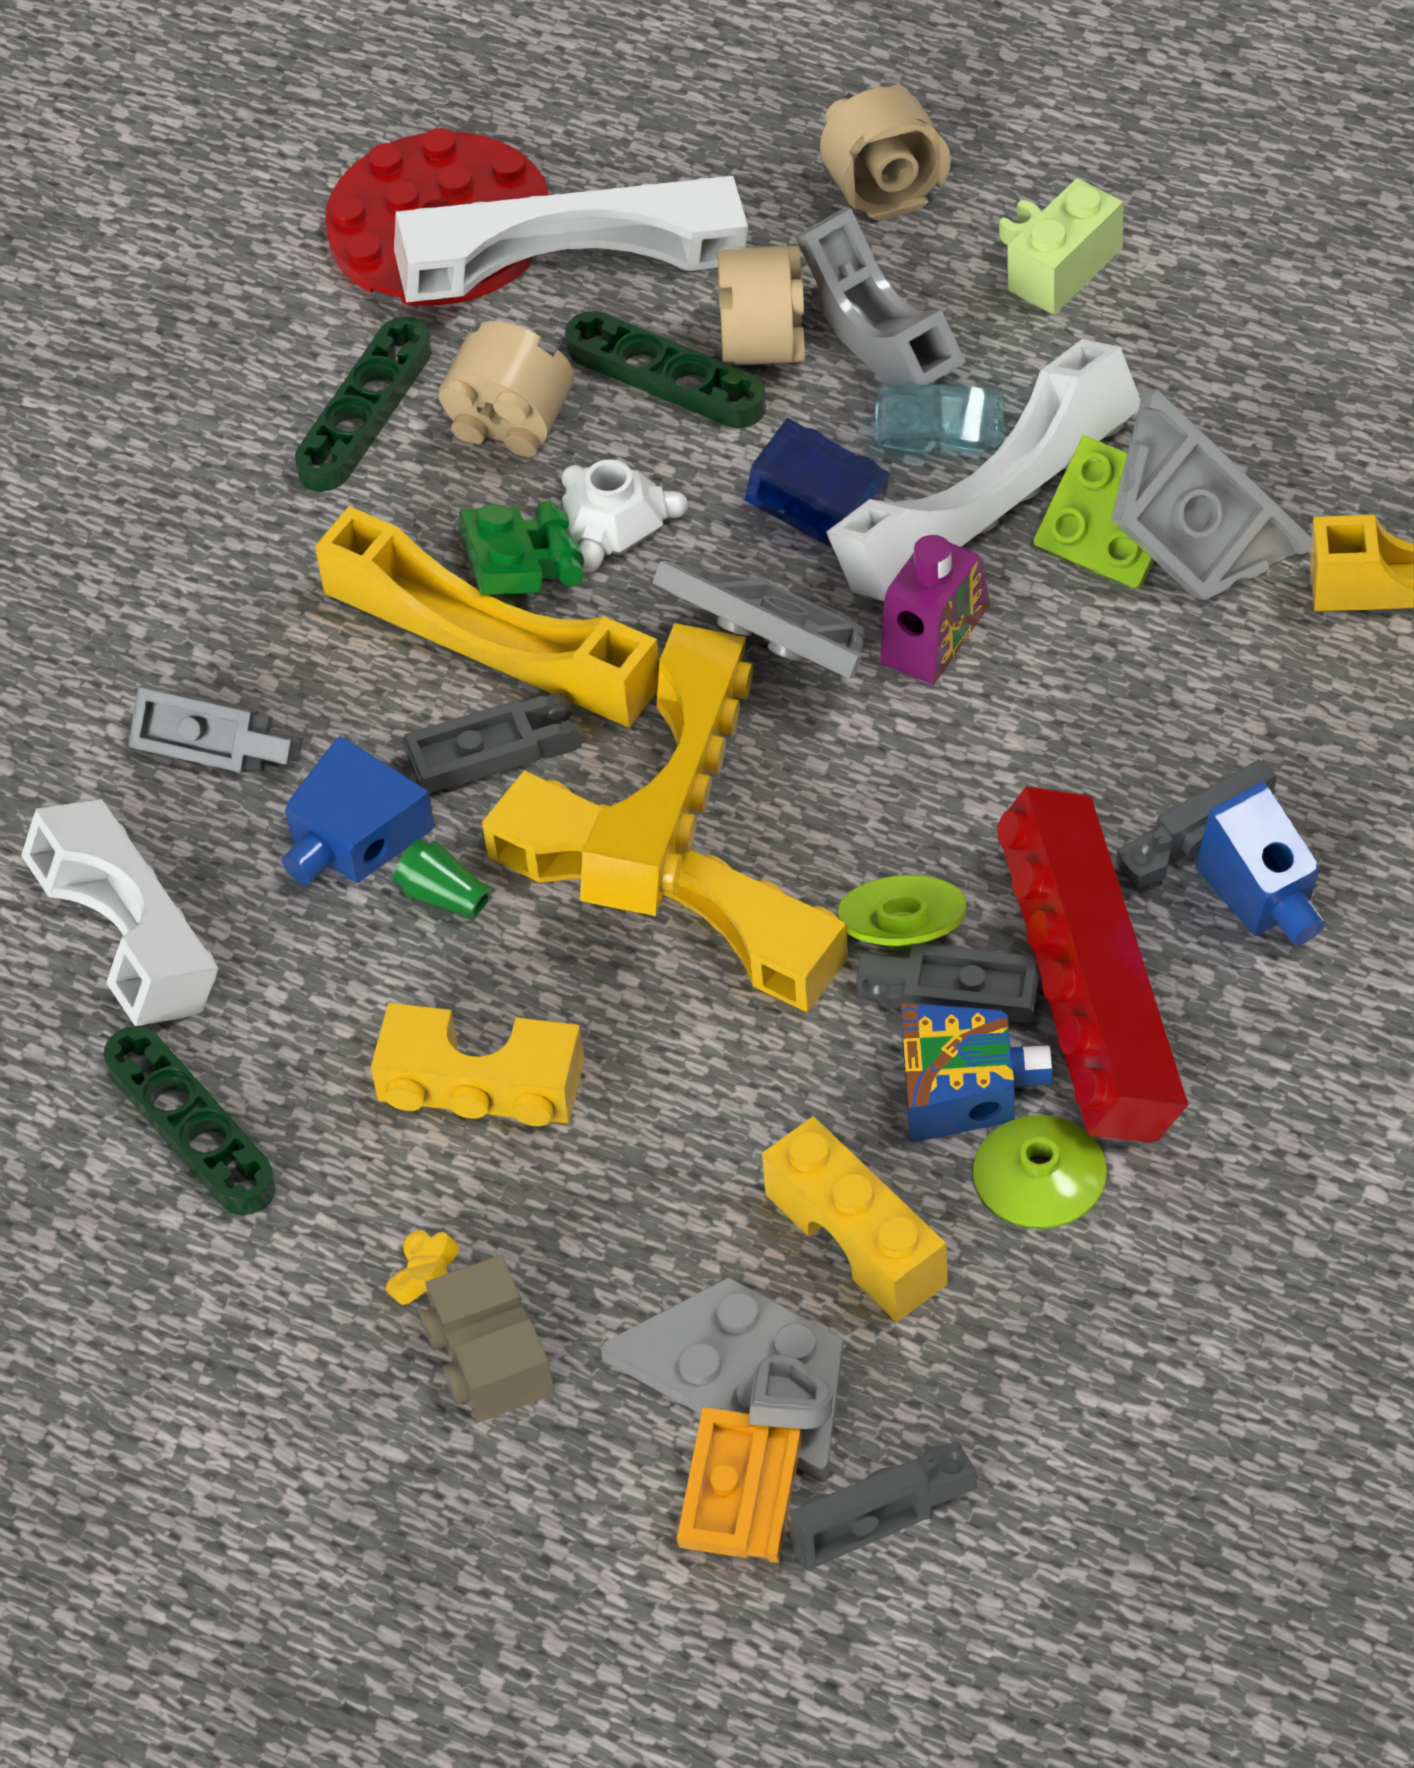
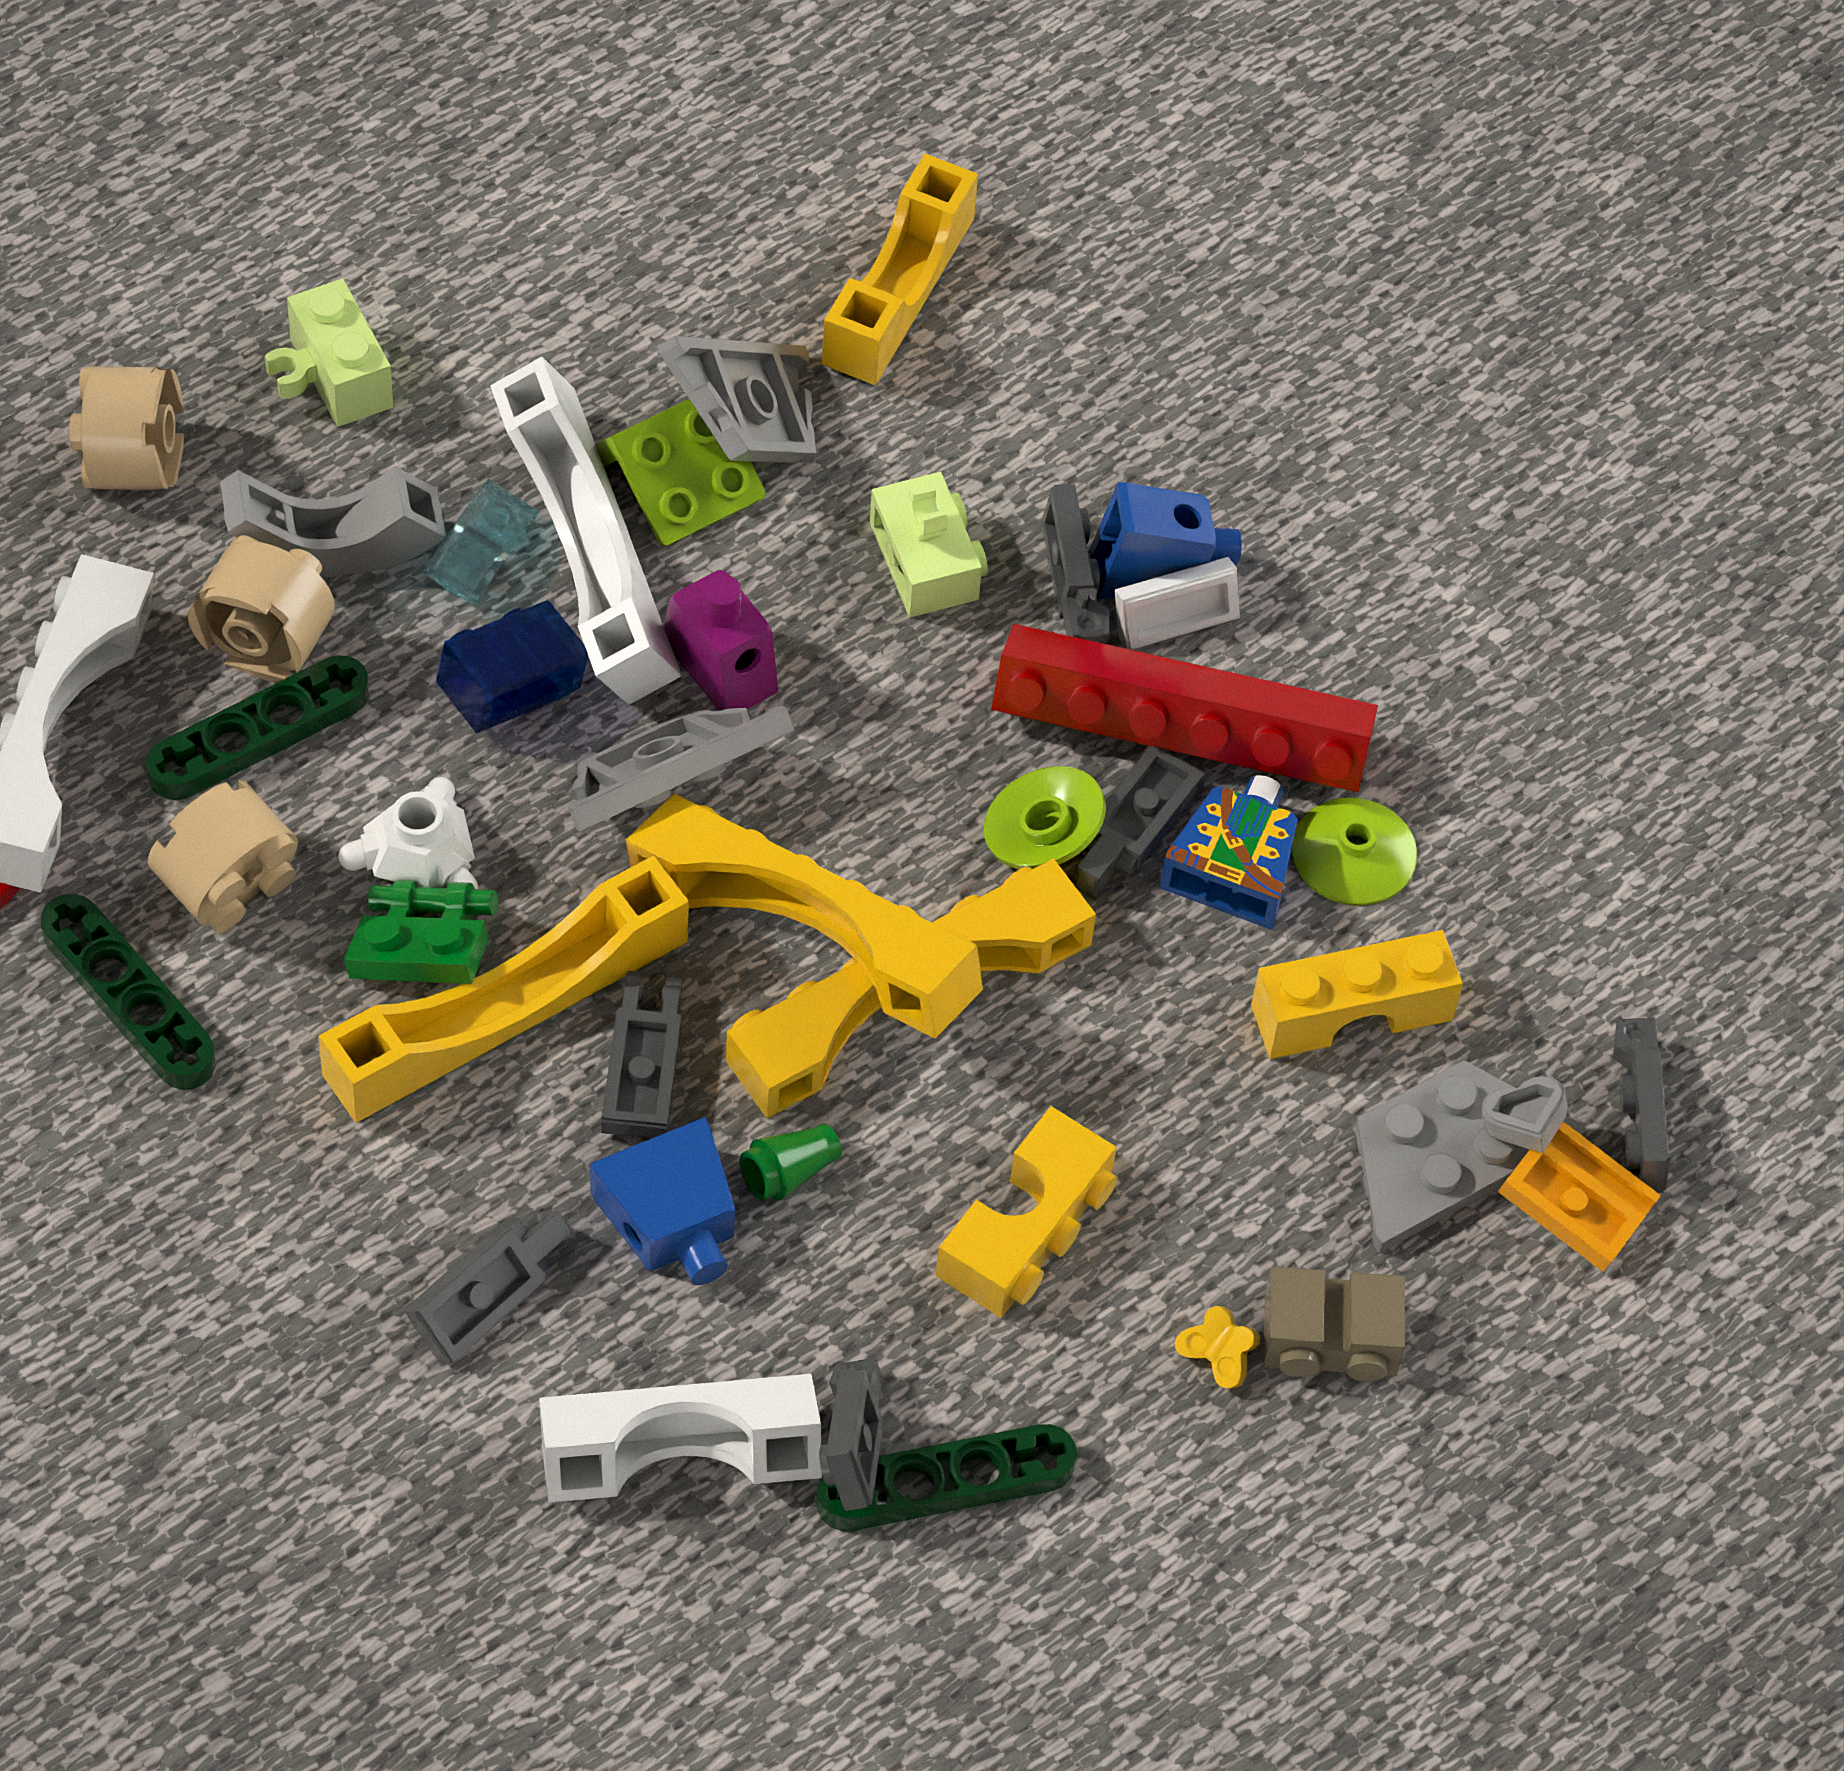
camera: 75 degrees left, 5 degrees up
(177, 1019) = (854, 1432): none -> dark grey hinge
(1149, 709) = (927, 544): none -> yellowish green brick
(1213, 916) = (1177, 603): none -> white tile

